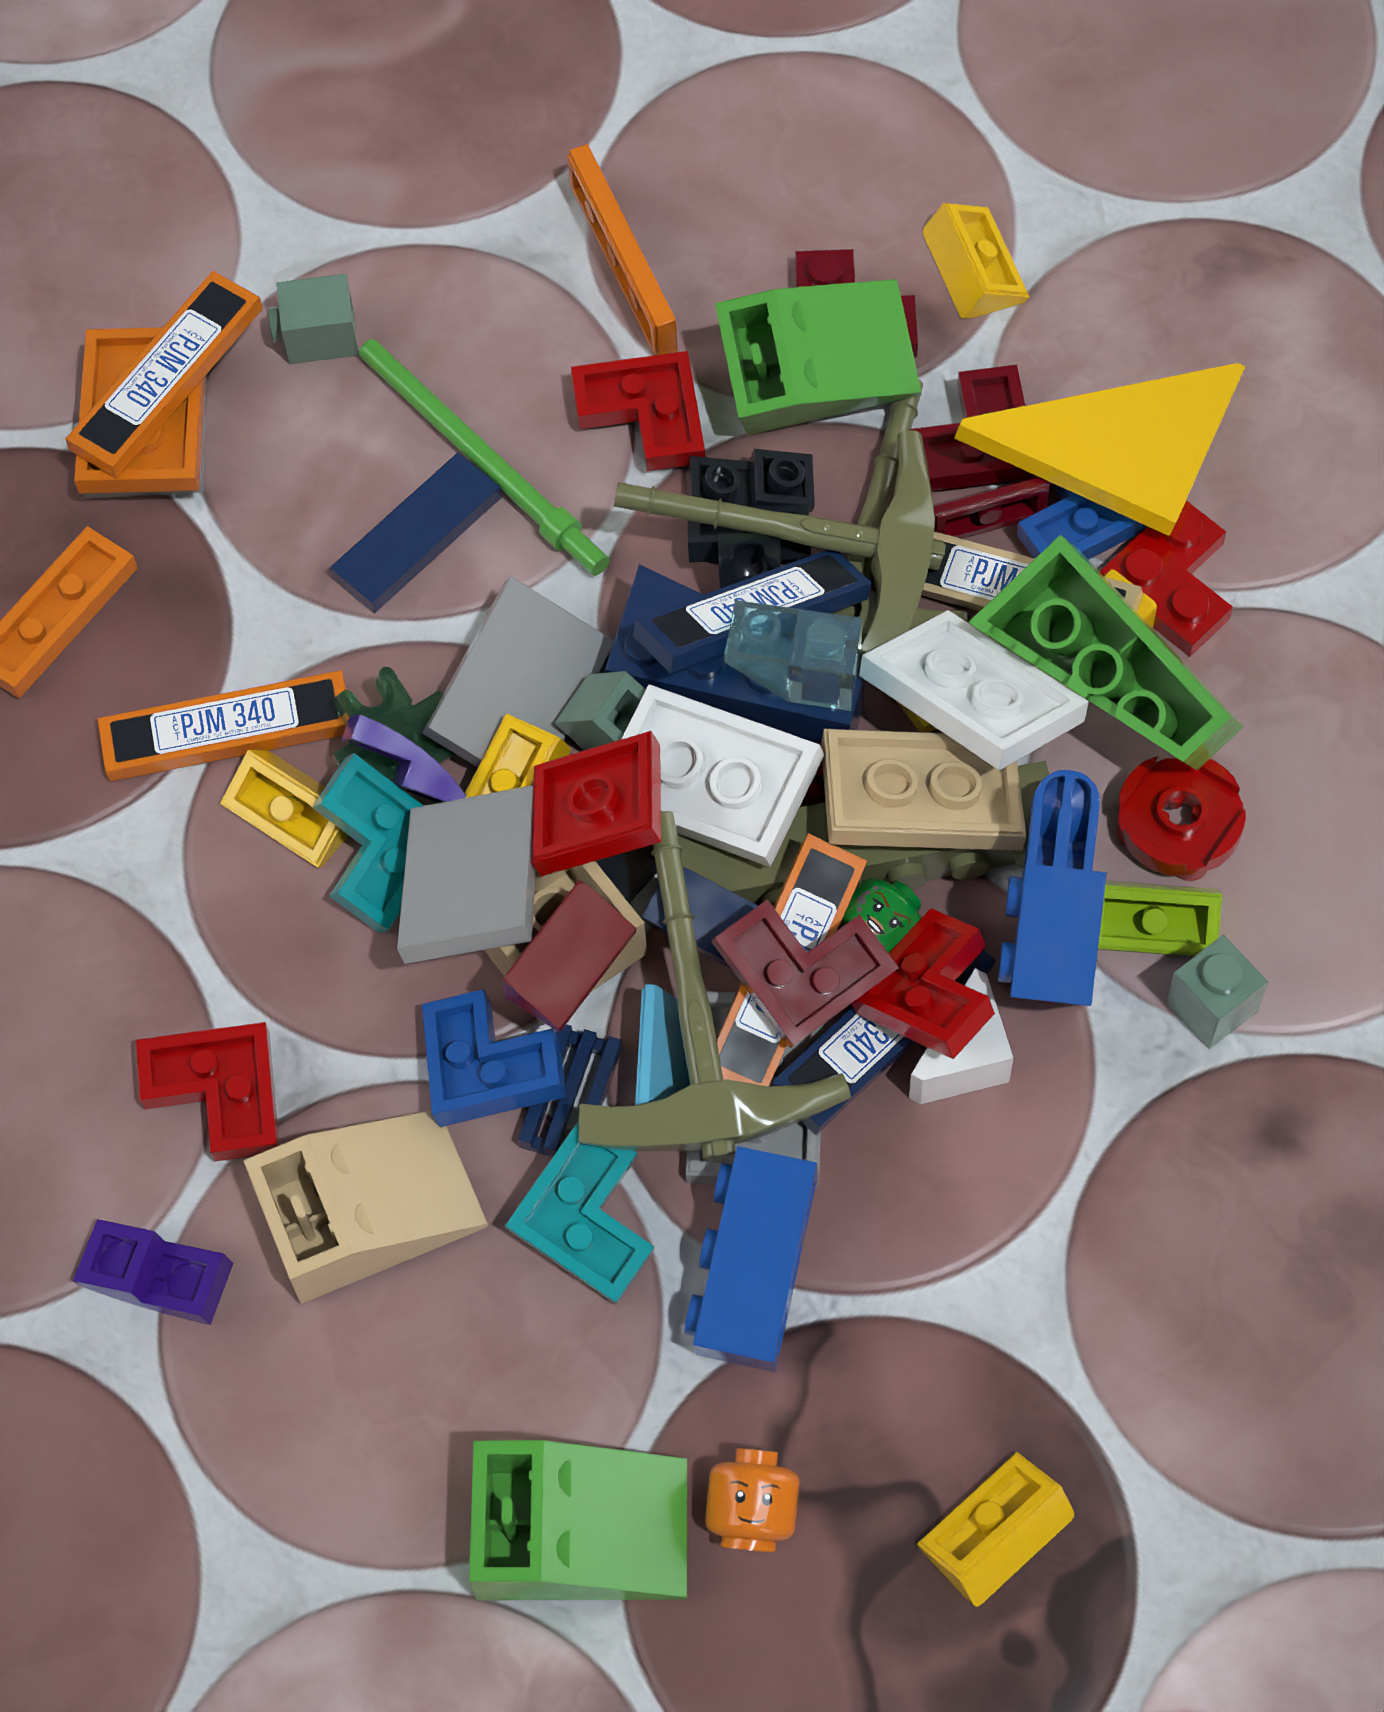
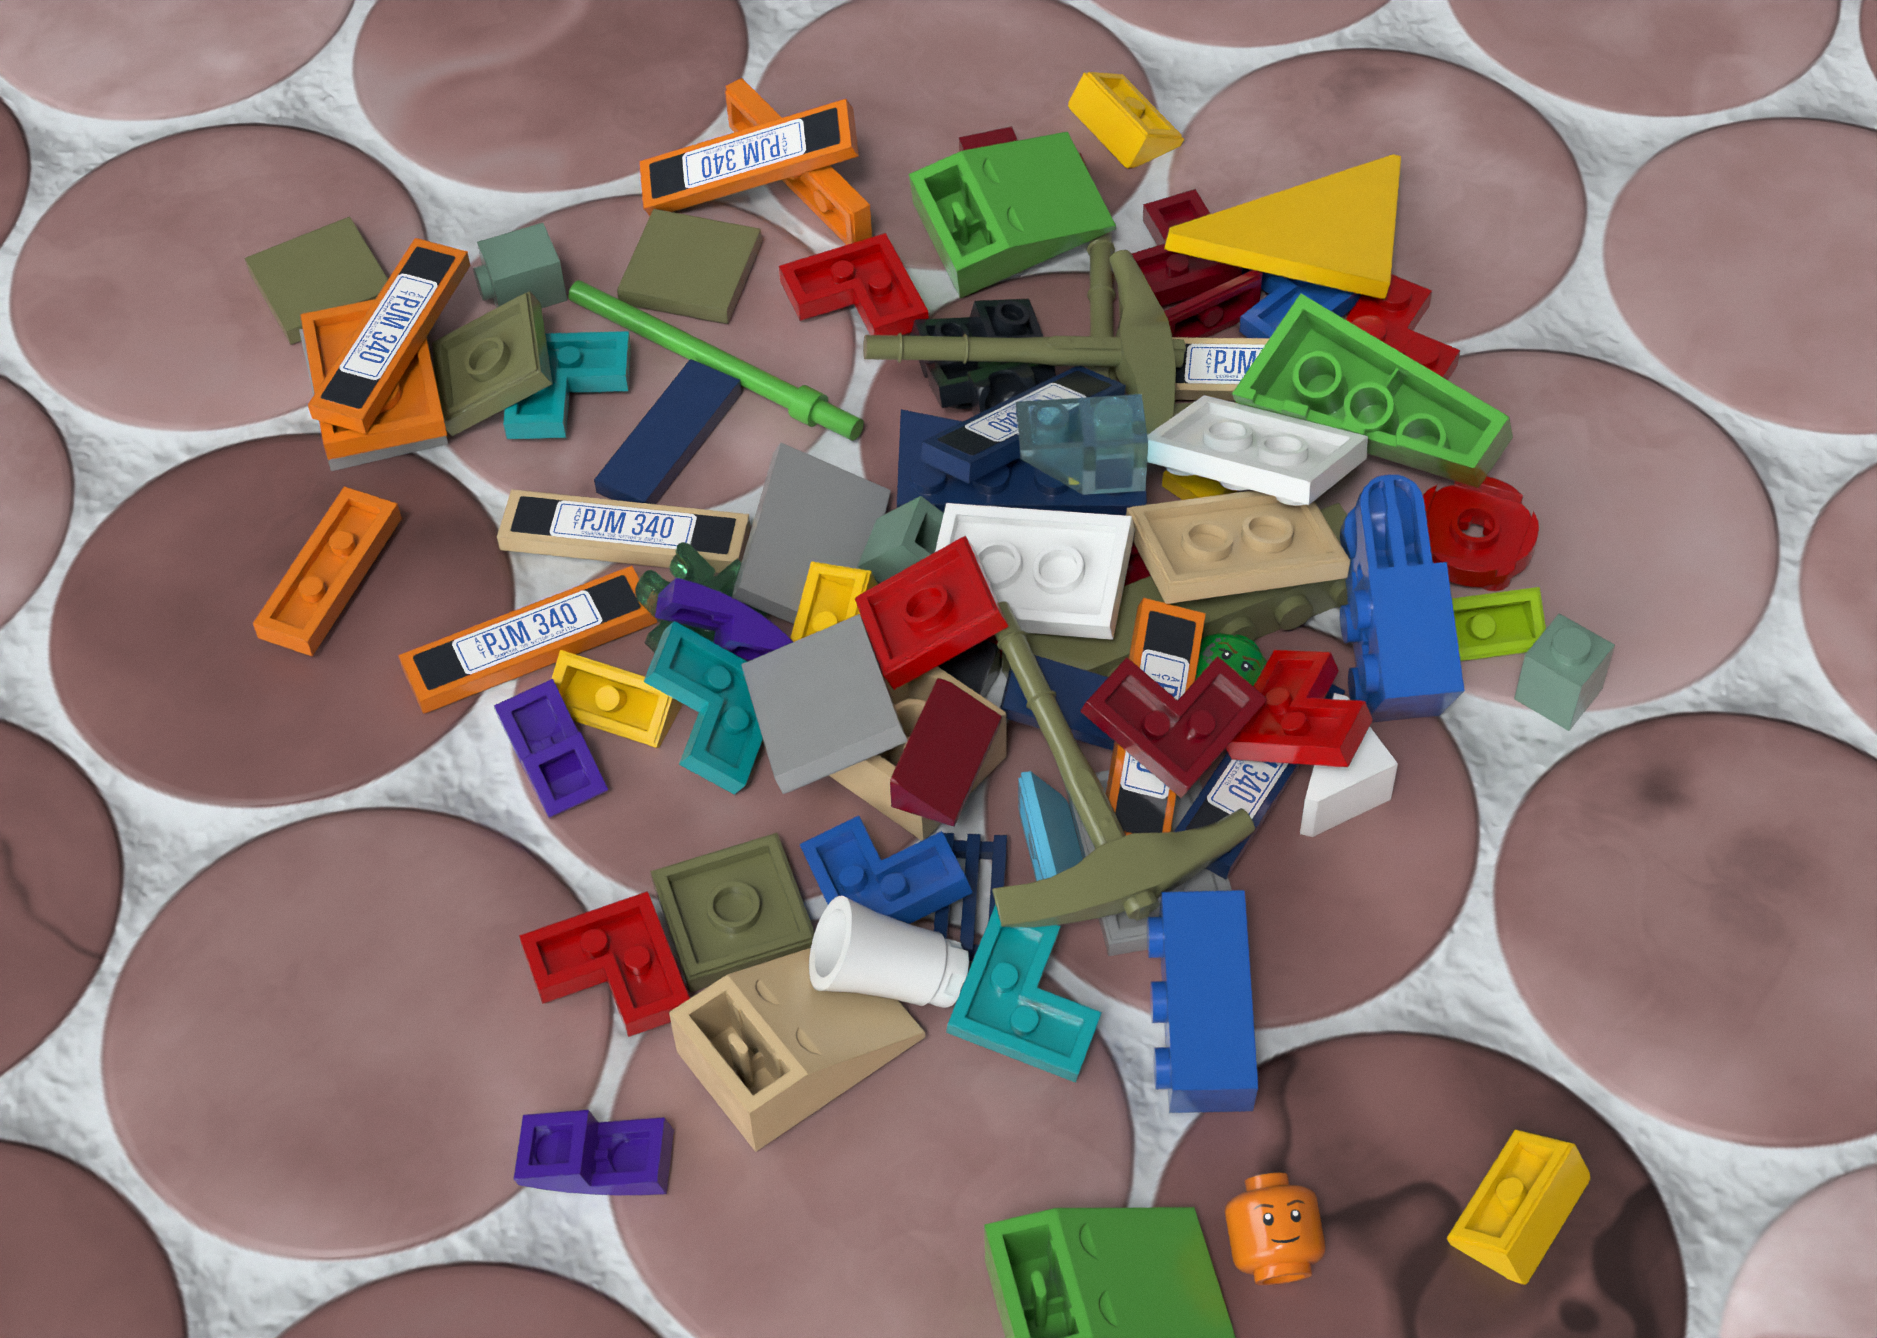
camera: 15 degrees left, 10 degrees down
(120, 279) = (316, 274): none -> olive tile
(216, 849) = (550, 749): none -> dark purple slope
(260, 419) = (491, 363): none -> olive tile
(321, 432) = (577, 365): none -> teal plate
(344, 628) = (619, 530): none -> tile
(345, 1056) = (732, 910): none -> olive tile
(463, 1146) = (884, 957): none -> white plant
(487, 343) = (690, 266): none -> olive tile
(570, 240) = (749, 158): none -> tile

